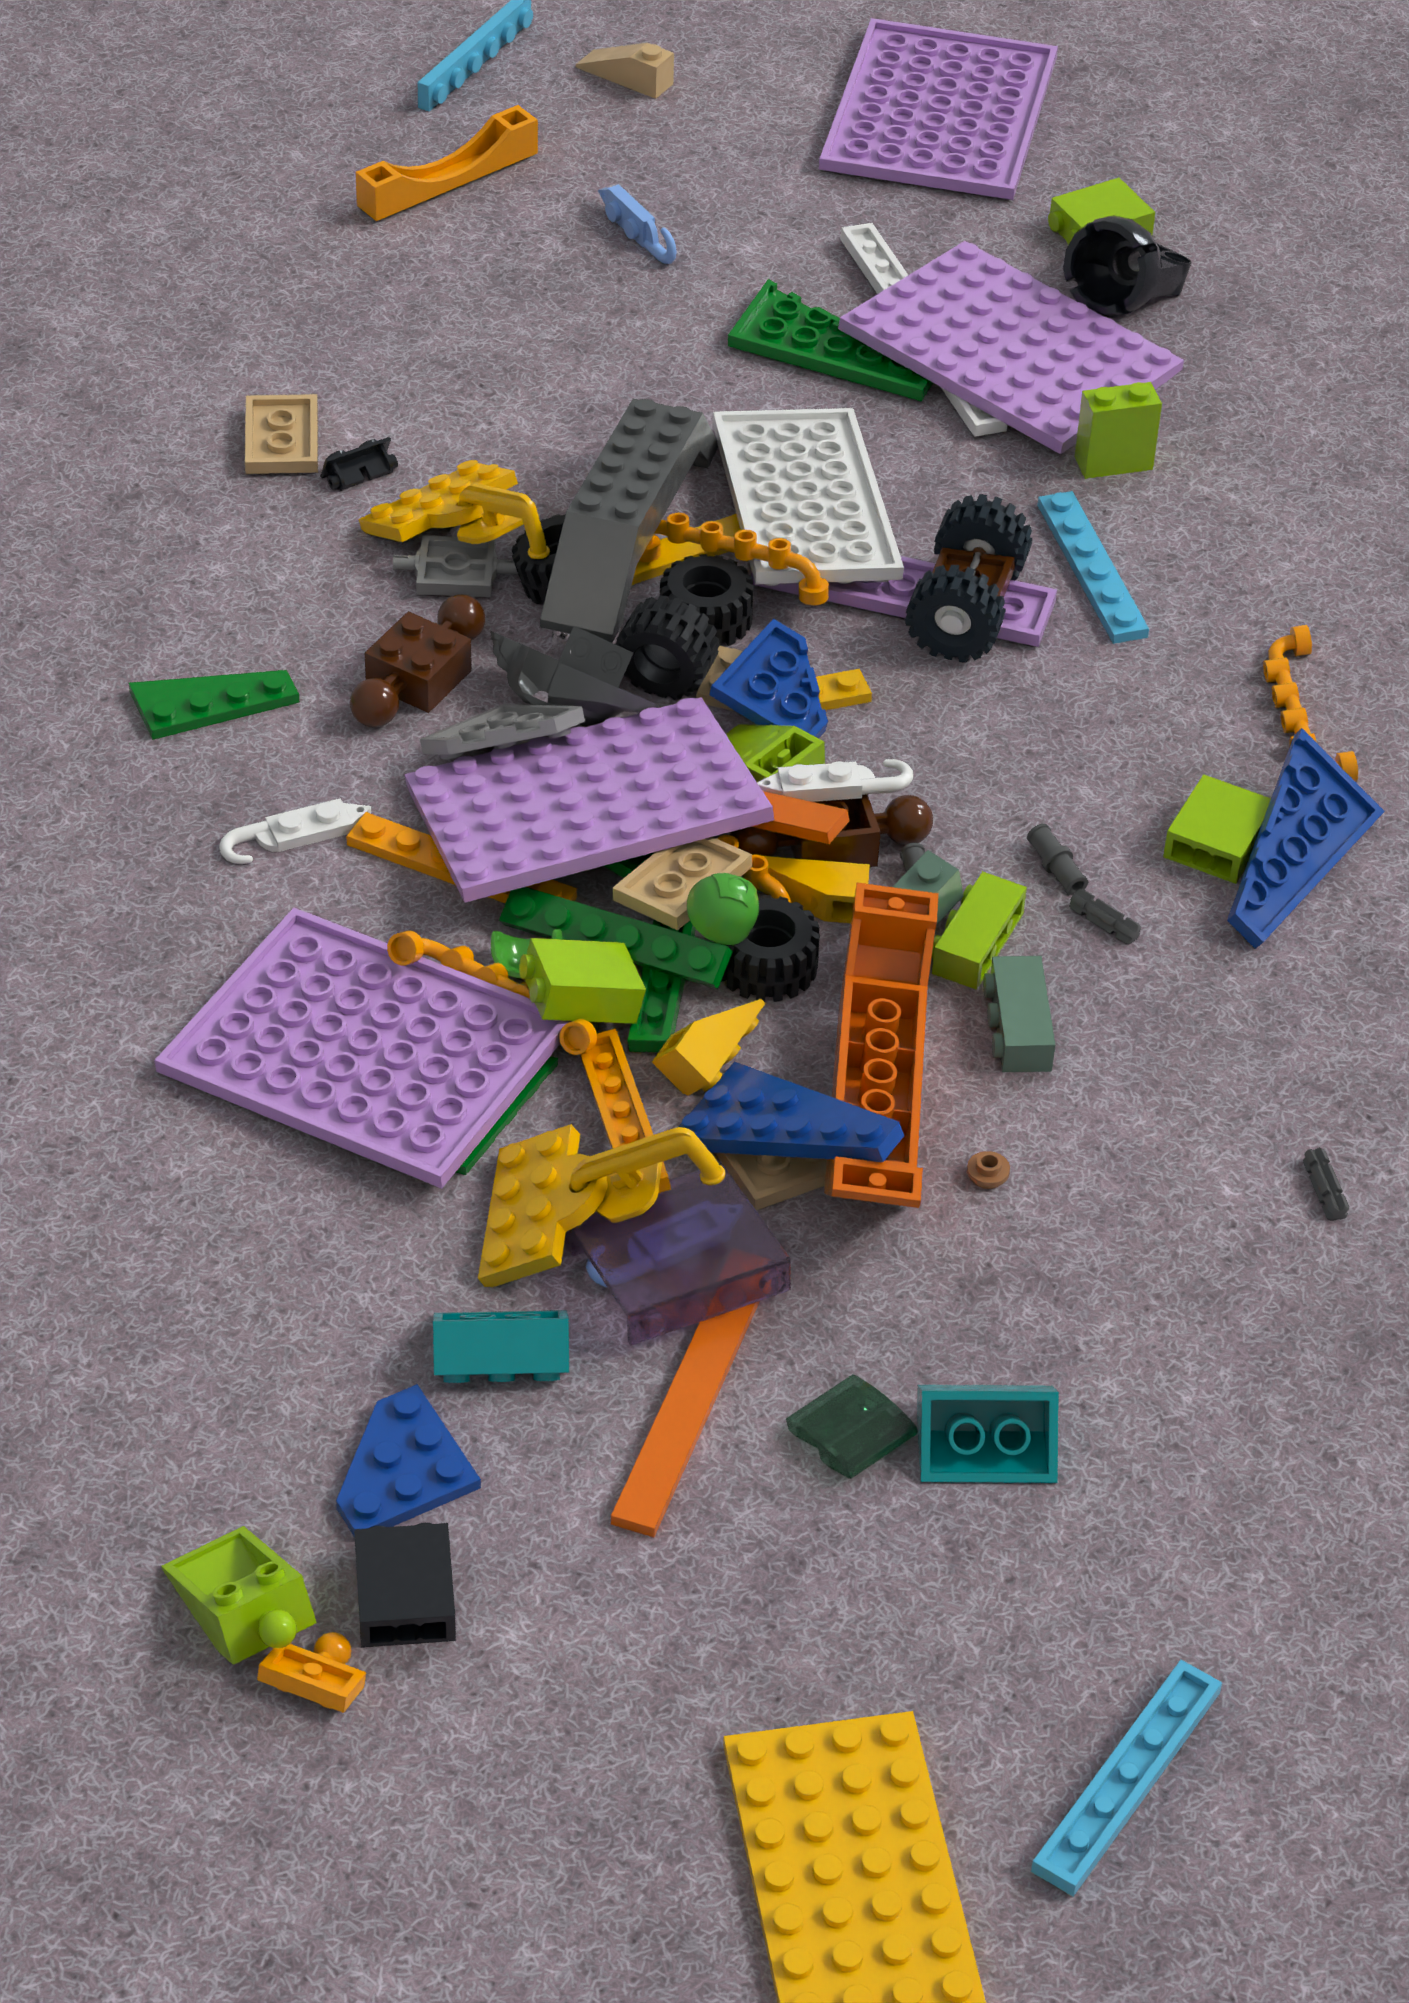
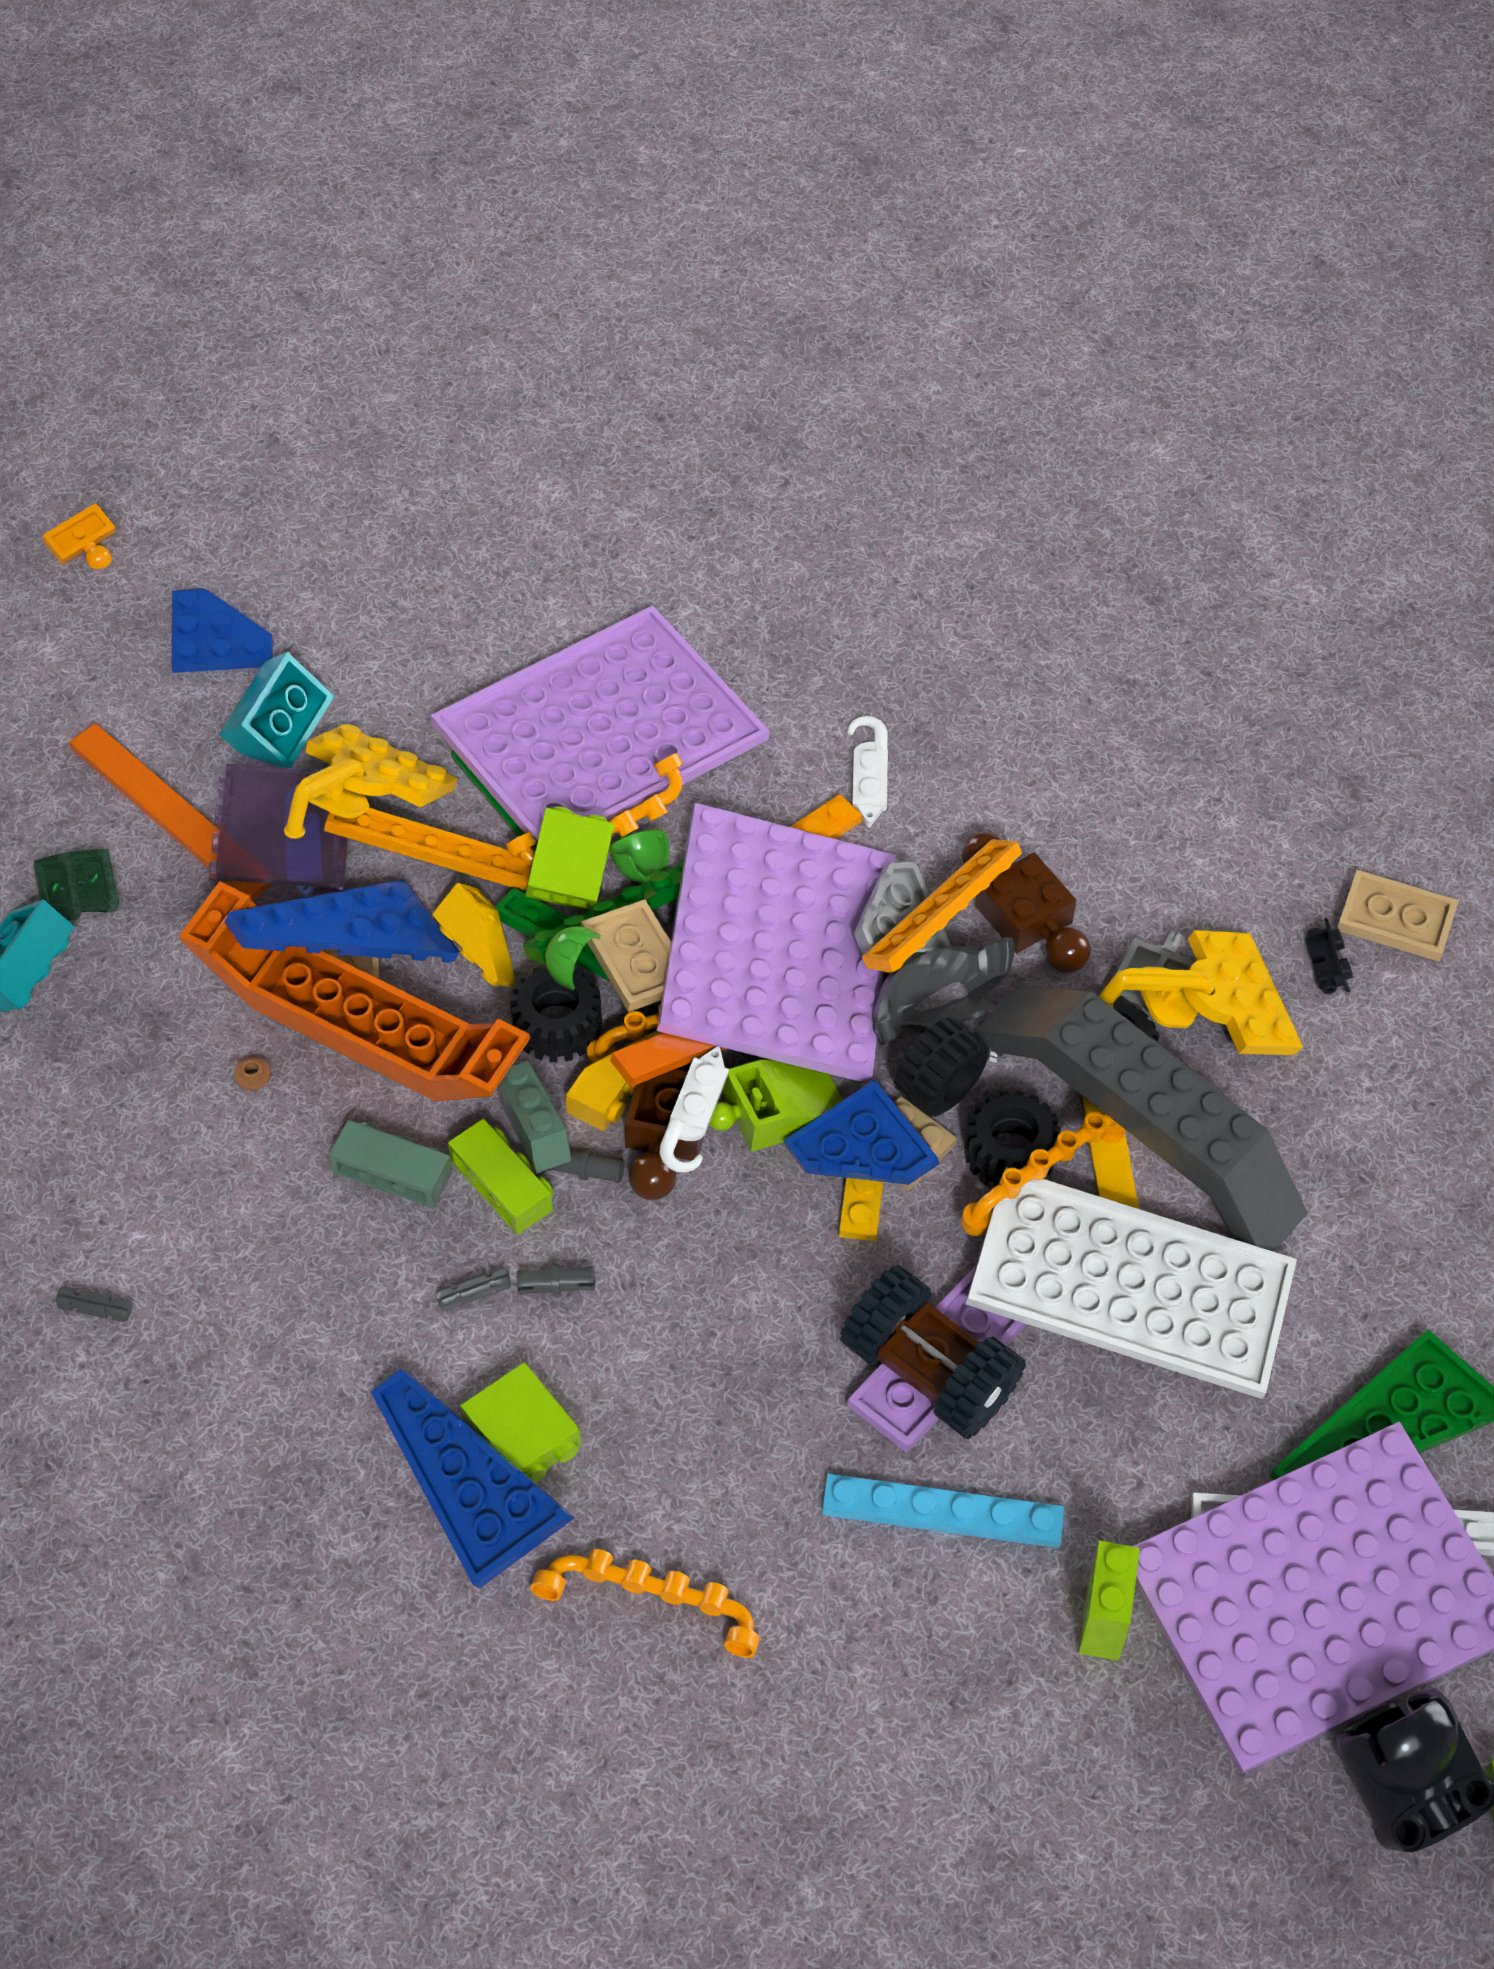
camera: 115 degrees right, 10 degrees up
(198, 702) = (1052, 761): green wing -> none
(242, 1594) = (161, 517): lime slope -> none
(405, 1585) = (112, 597): black brick -> none
(488, 674) = (942, 905): none -> light orange plate

